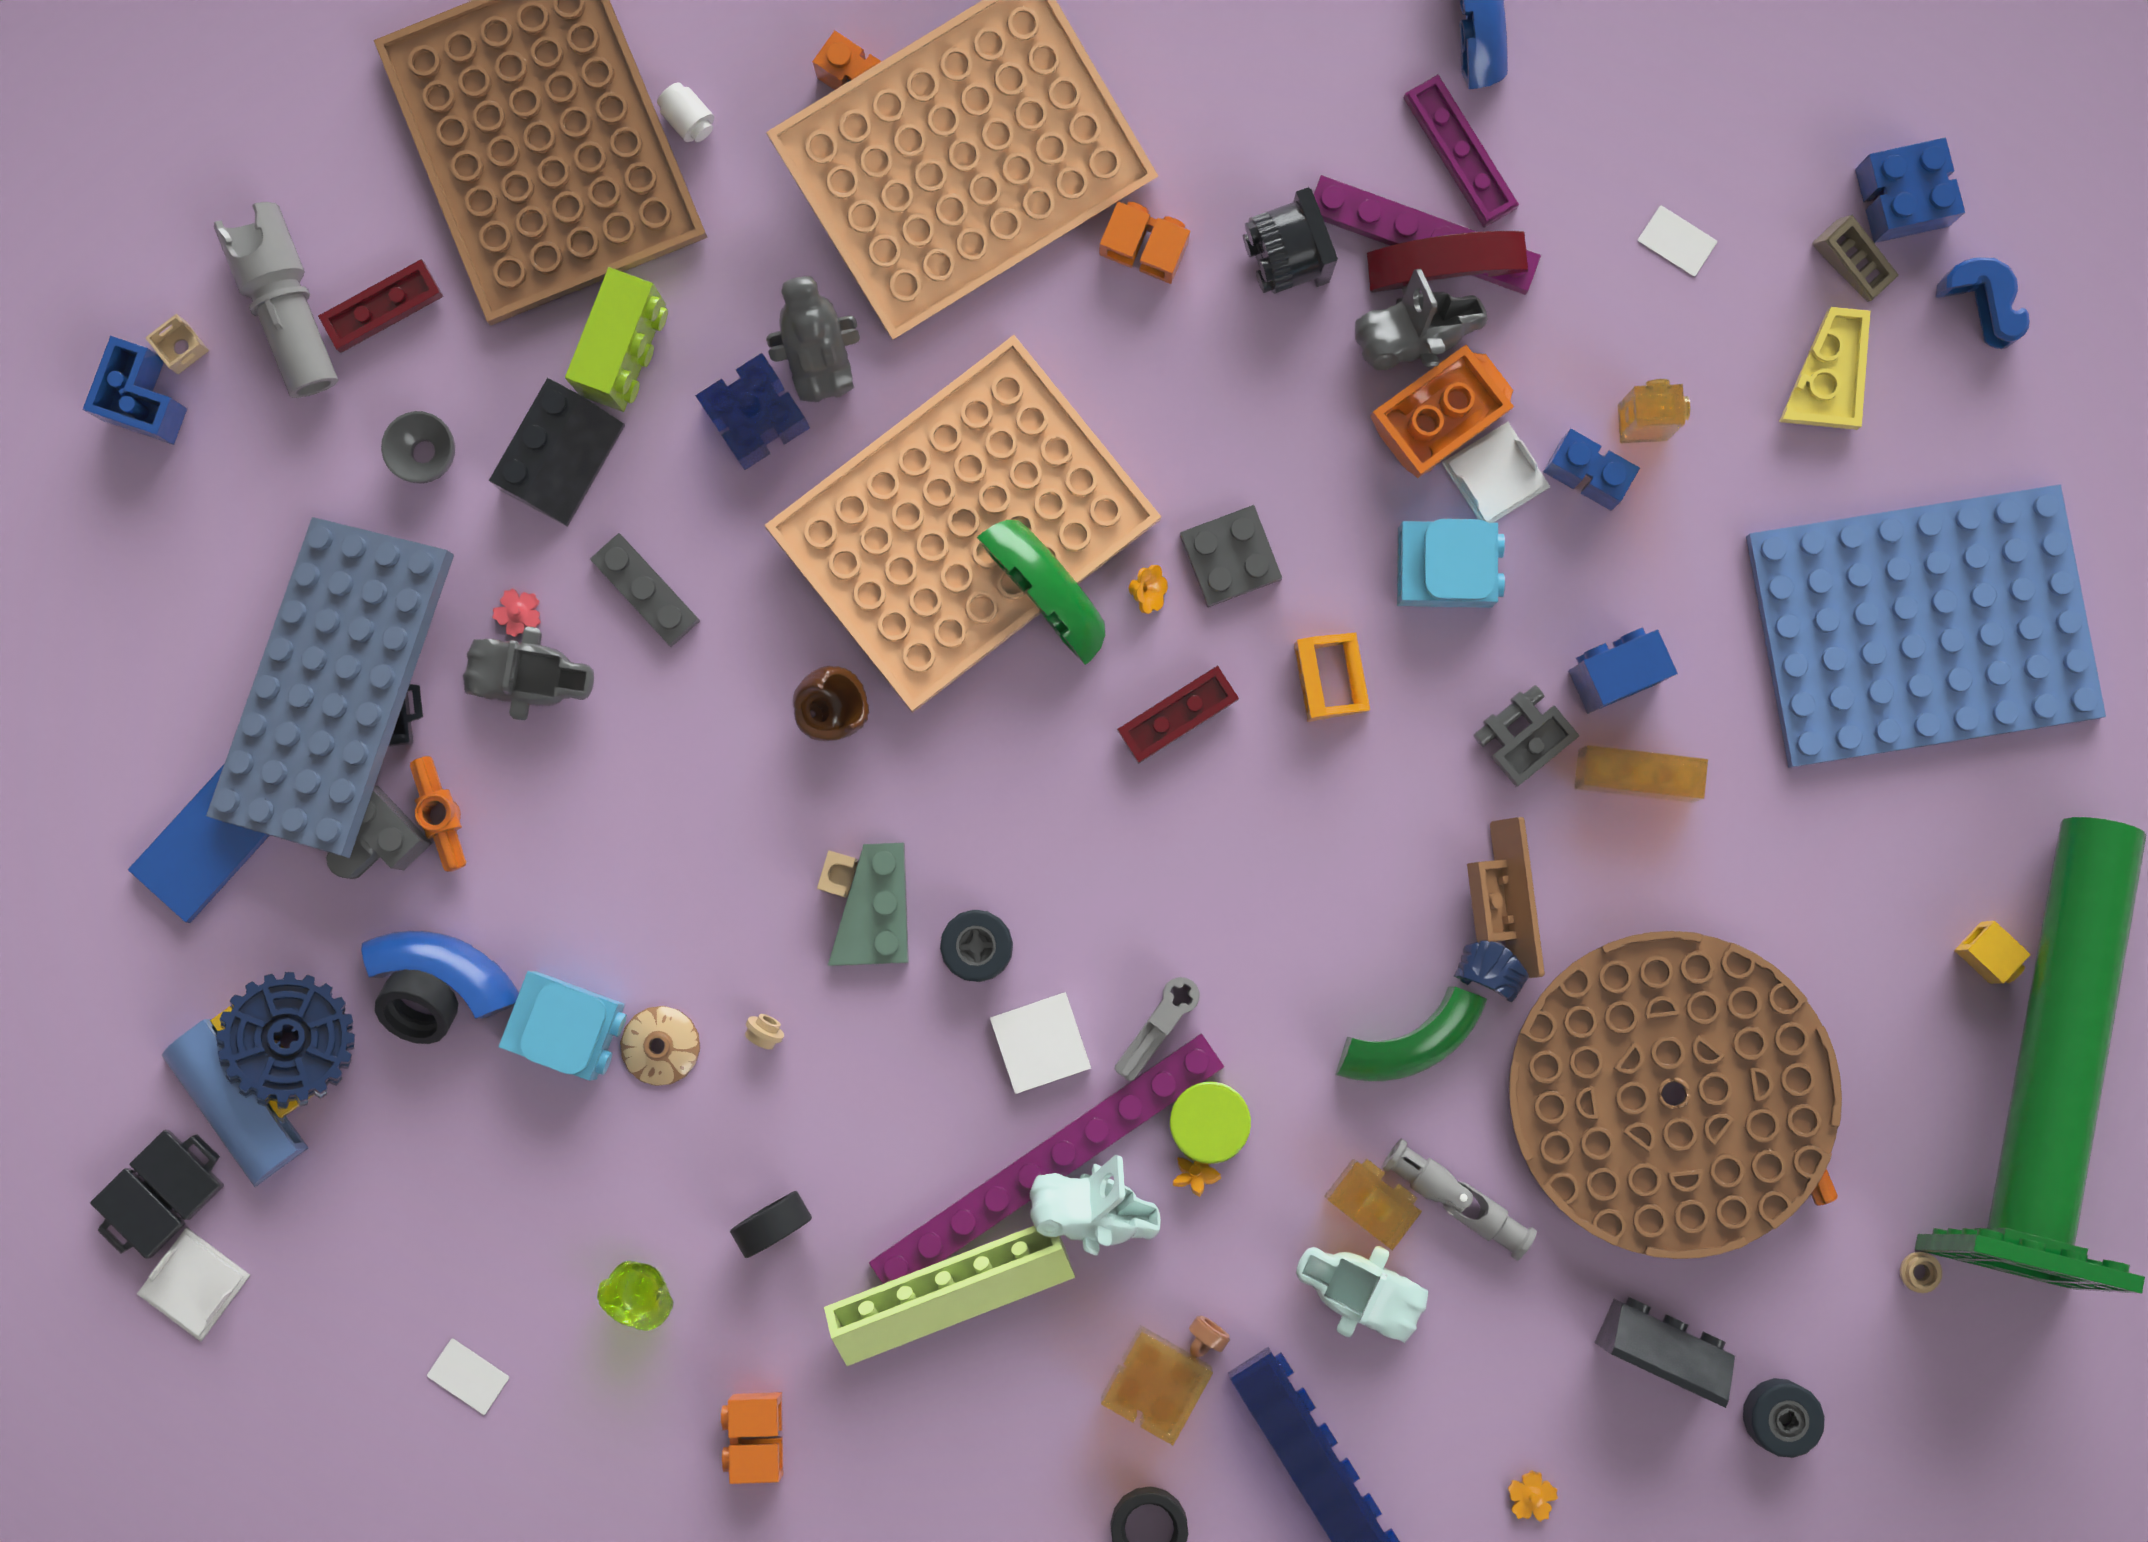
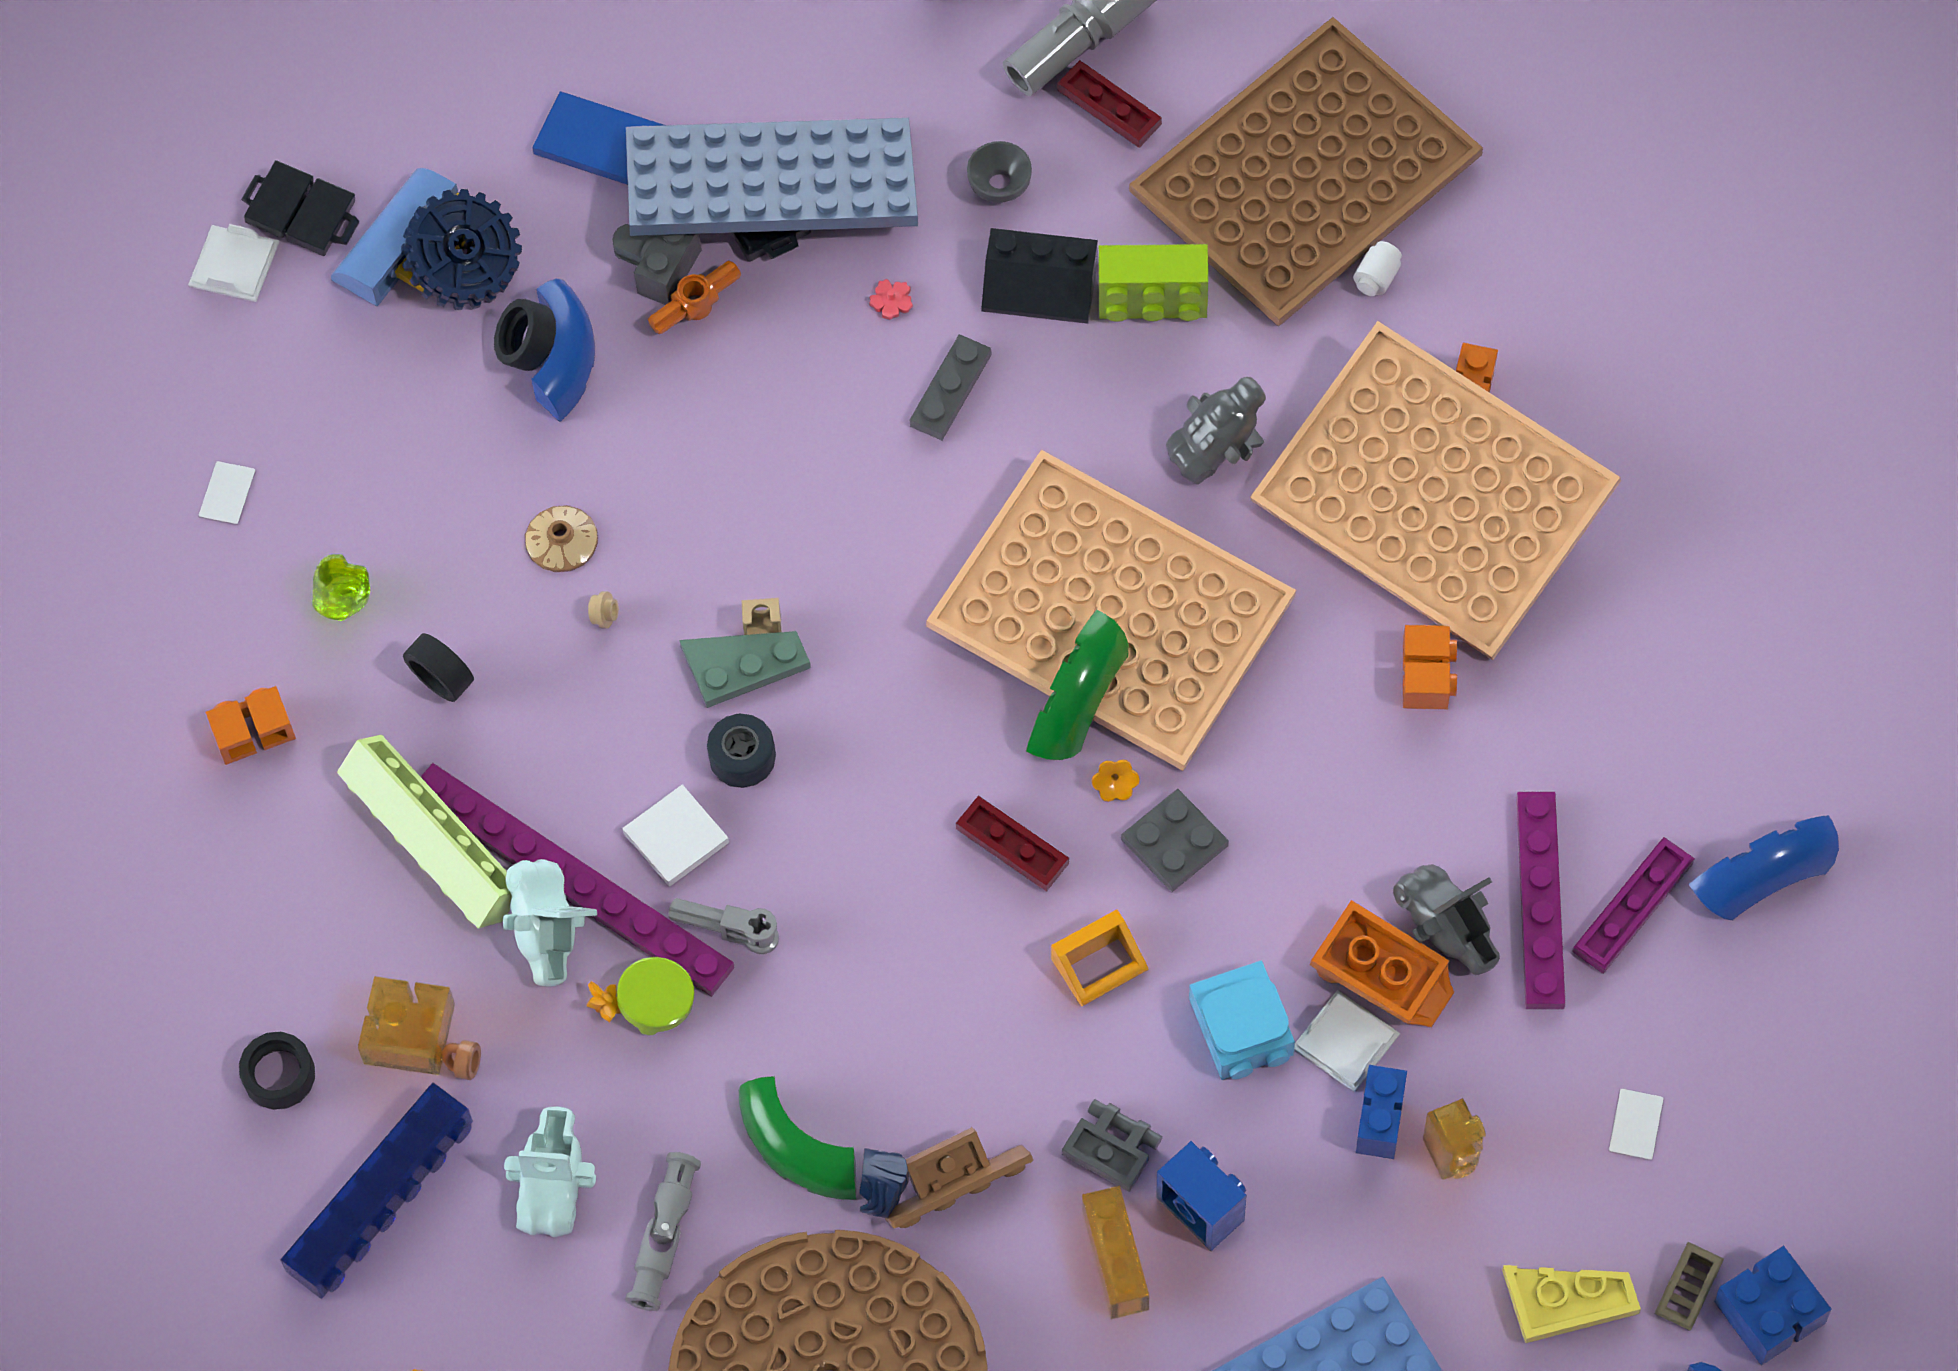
camera: 70 degrees right, 20 degrees down
(524, 673) = (839, 318): dark grey piece -> none
(563, 1026) = (550, 453): medium azure brick -> none
(753, 411) = (1138, 410): clear blue brick -> none
(830, 704) = (915, 557): reddish brown piece -> none
(1291, 245) = (1473, 780): black piece -> none
(1373, 1203) = (633, 1156): clear yellow brick -> none
(1448, 257) = (1526, 923): dark red slope -> none

